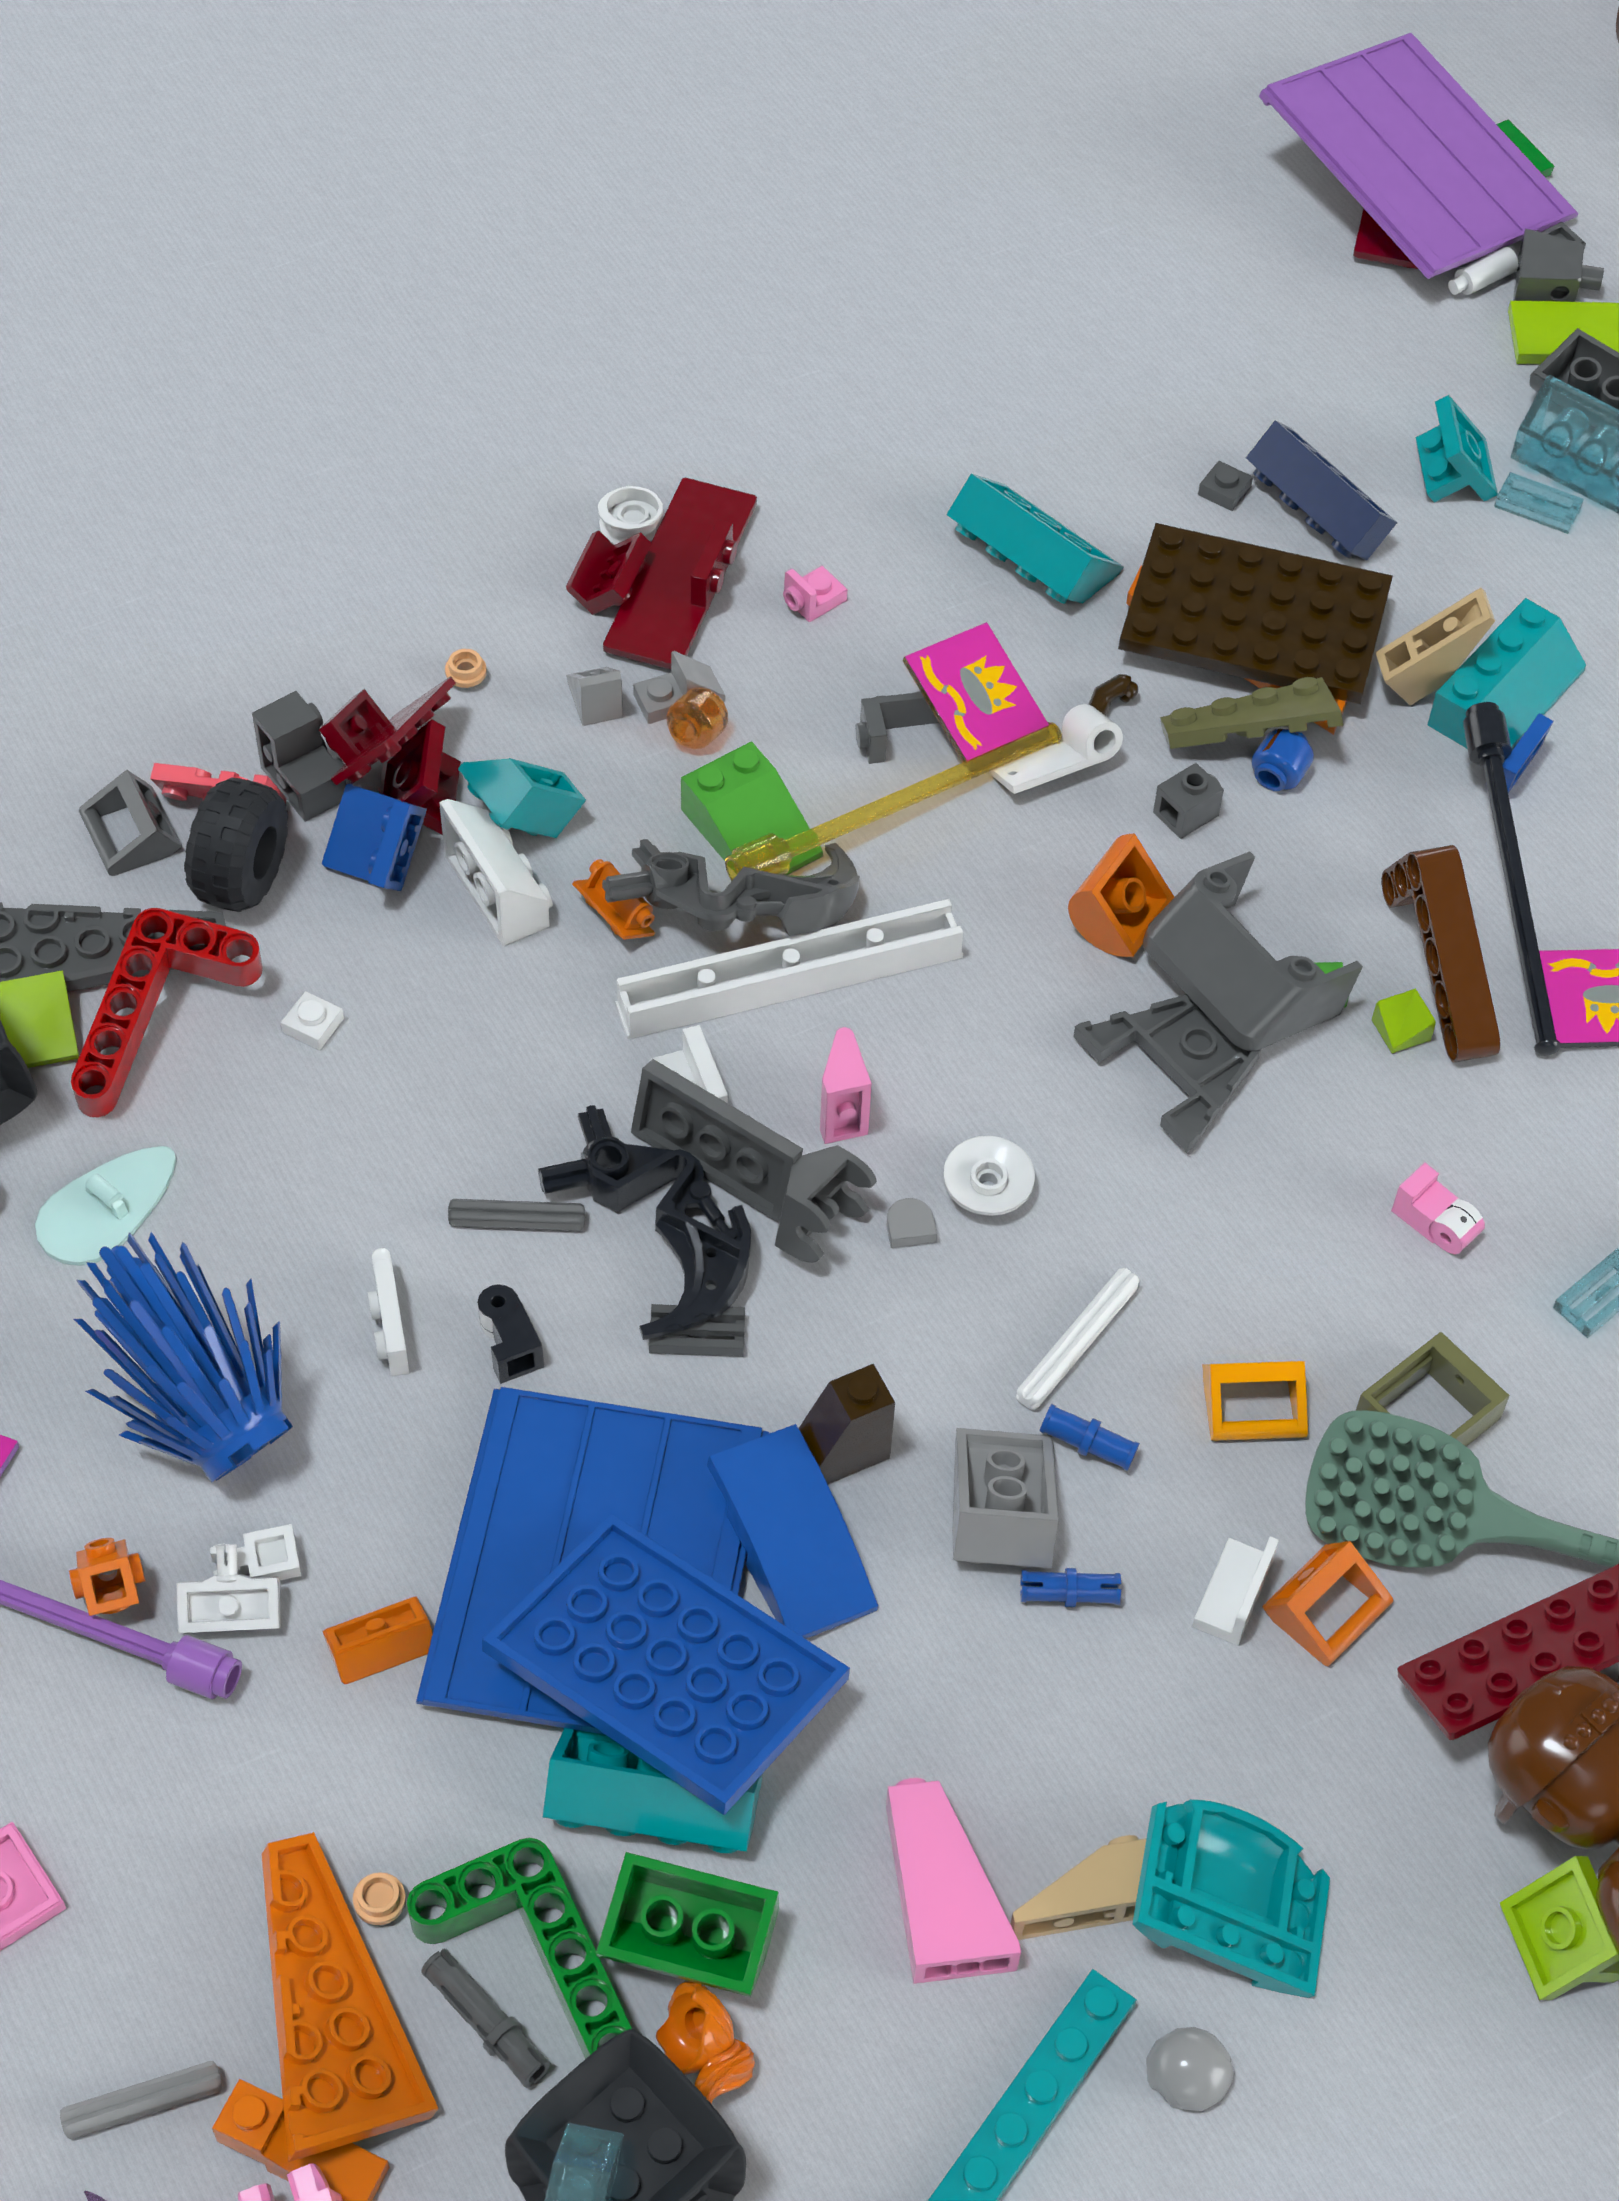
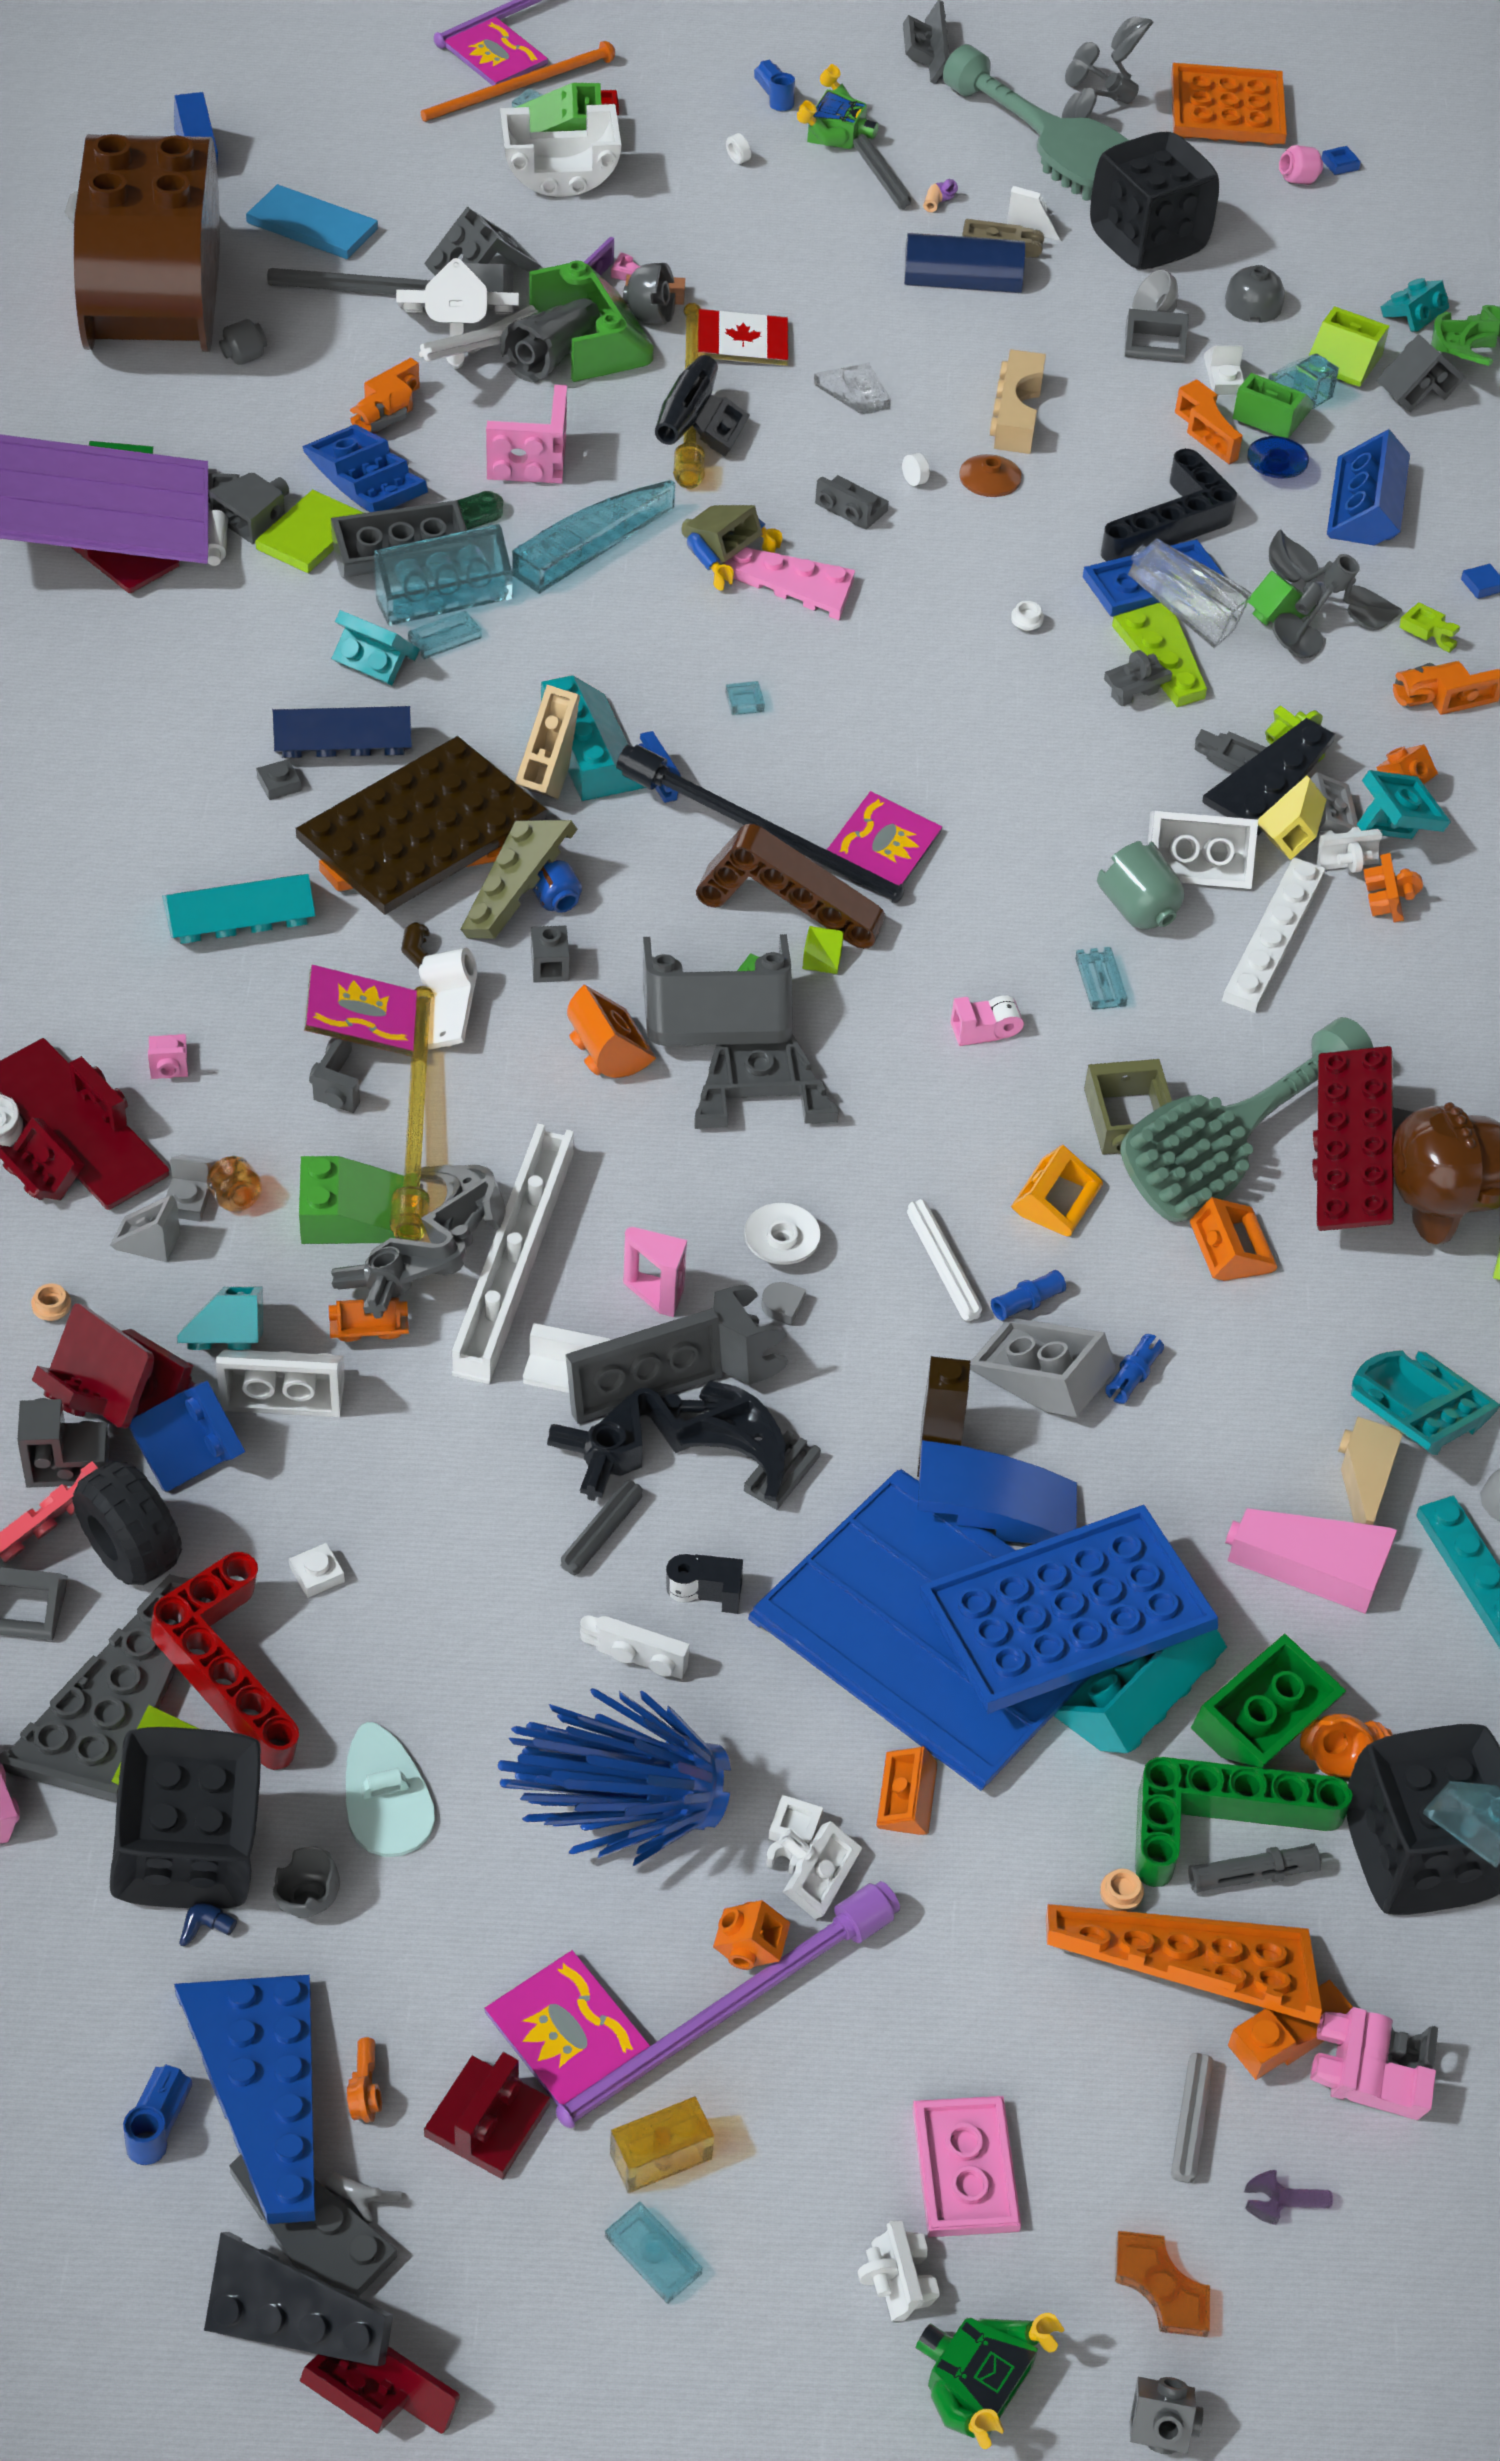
camera: 60 degrees left, 5 degrees down
(1234, 1589) = (1196, 1279): white panel -> none

